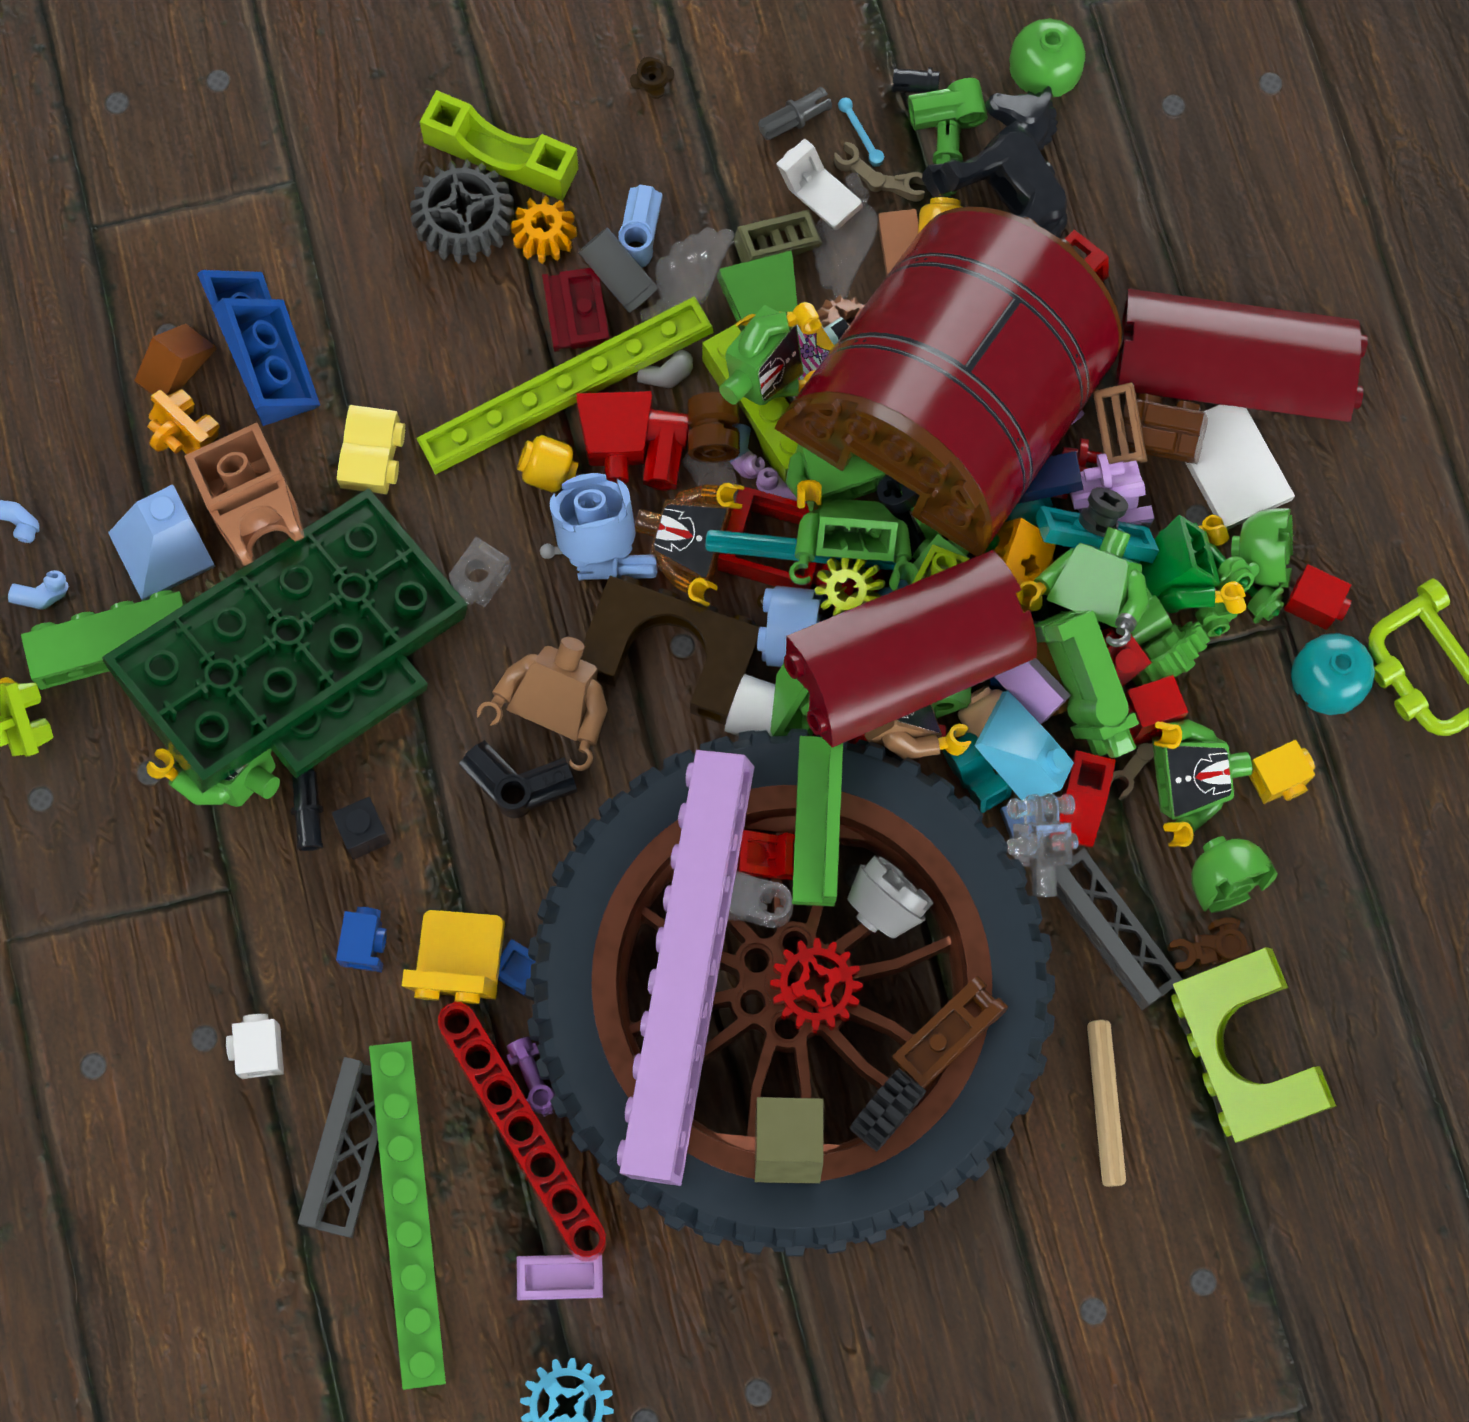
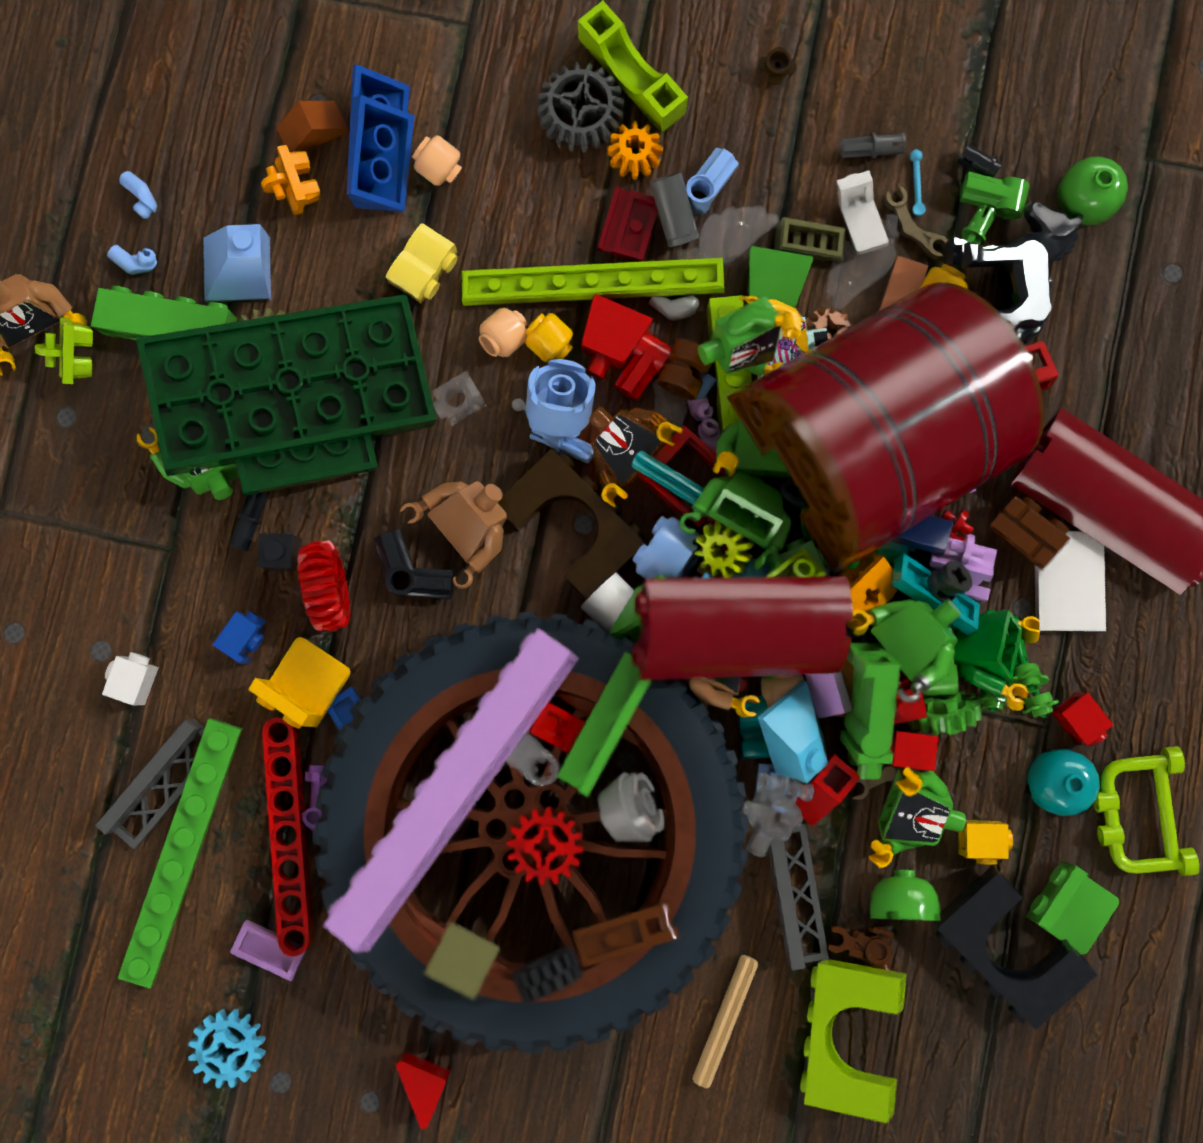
camera: 30 degrees right, 10 degrees up
(245, 490) = (310, 254): nougat brick -> none
(333, 334) = (437, 160): none -> light nougat head
(432, 835) = (323, 586): none -> red gear
(494, 481) = (503, 332): none -> light nougat head
(811, 1336) = (422, 1083): none -> red slope
(1114, 392) = (990, 542): medium nougat tile -> none
(1268, 542) = (1063, 662): bright green cylinder -> none
(1311, 873) = (1032, 991): none -> black arch
(1411, 798) = (1073, 907): none -> bright green bracket

